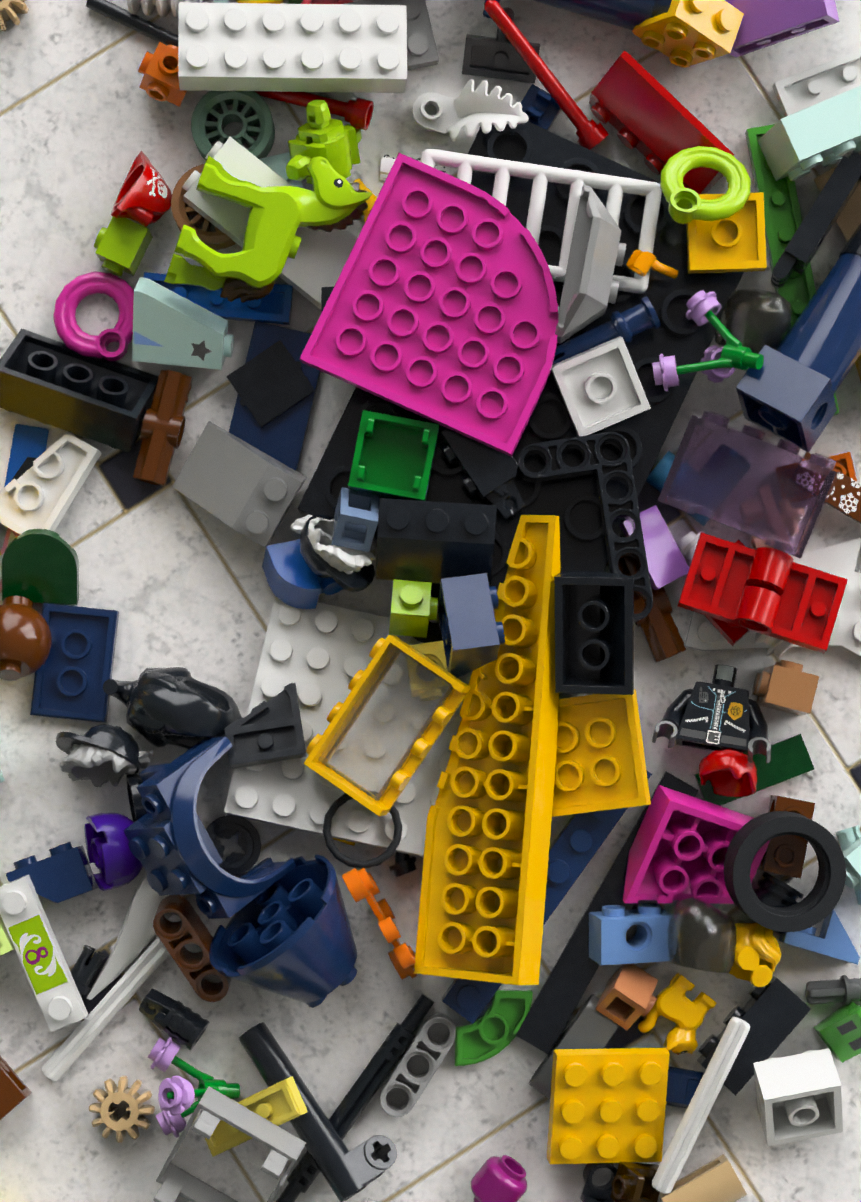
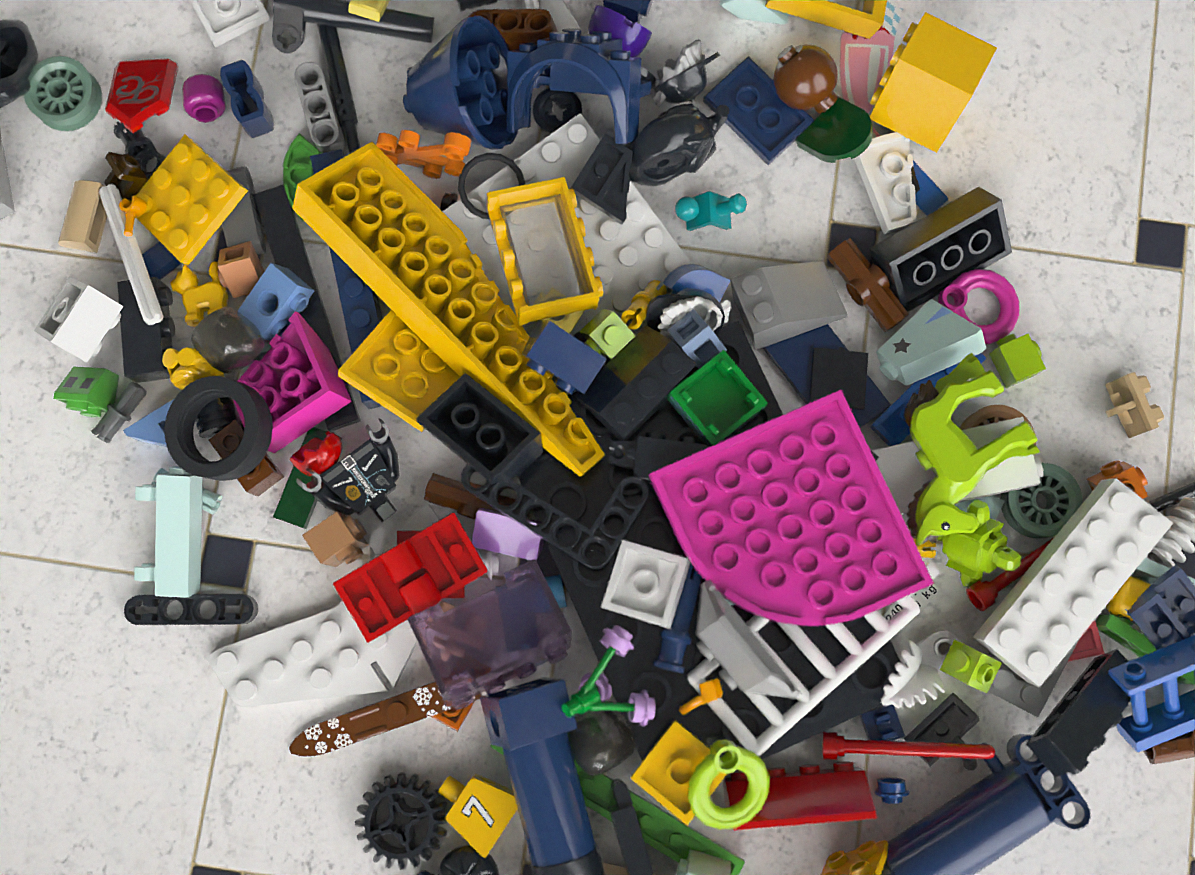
camera: 130 degrees right, 5 degrees down
(83, 117) = (1132, 405): none -> tan hips
(143, 194) = (1040, 399): red hat -> none
(210, 624) = (709, 209): none -> teal piece
(355, 602) = (638, 309): none -> yellow pin
(430, 75) = (970, 666): none -> lime brick
(473, 1129) = (247, 98): none -> dark blue brick
(585, 60) = (891, 790): none -> blue plate
(654, 1139) = (133, 209): none -> light orange hand

